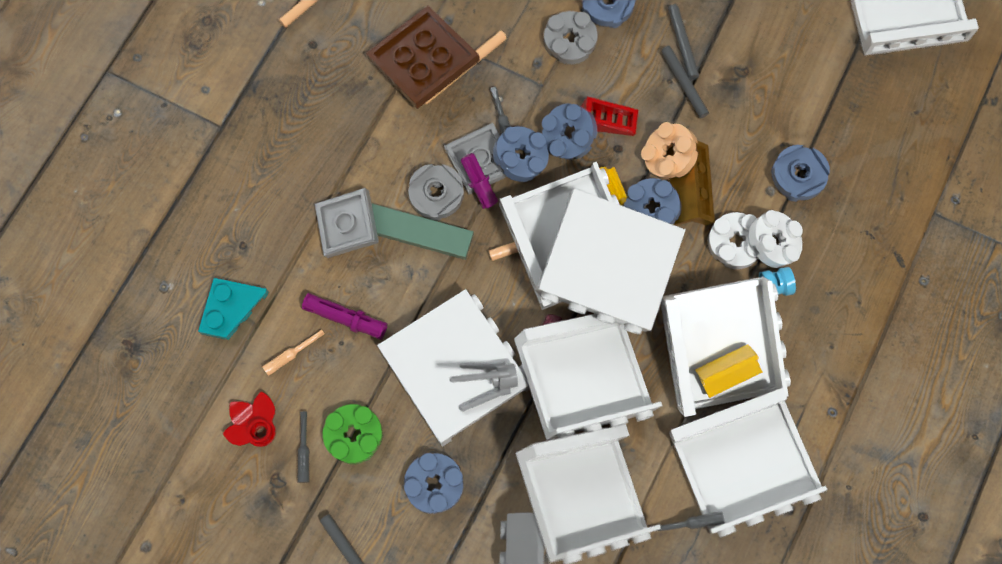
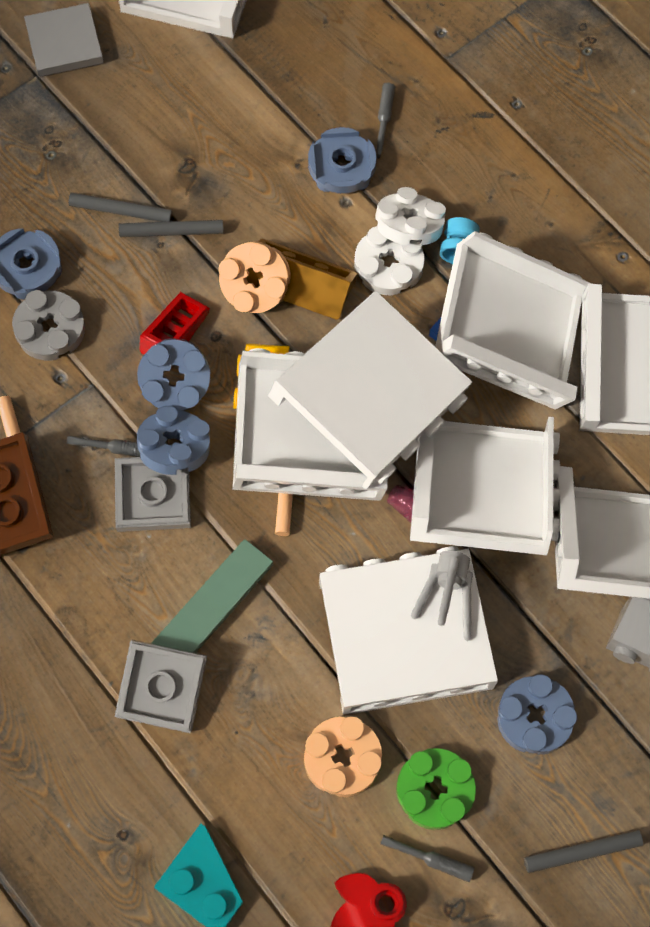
camera: 70 degrees left, 5 degrees down
(289, 354) = (300, 831): light nougat piece -> none
(349, 378) = (334, 777): none -> light nougat plate
(353, 319) = (282, 737): magenta pin -> none
(420, 194) = (161, 580): light grey plate -> none
(479, 181) = (187, 502): magenta axle -> none
(659, 191) = (299, 309): sand blue plate -> none
(729, 370) = (542, 329): yellow panel -> none
(859, 187) = (385, 113): none -> dark grey piece

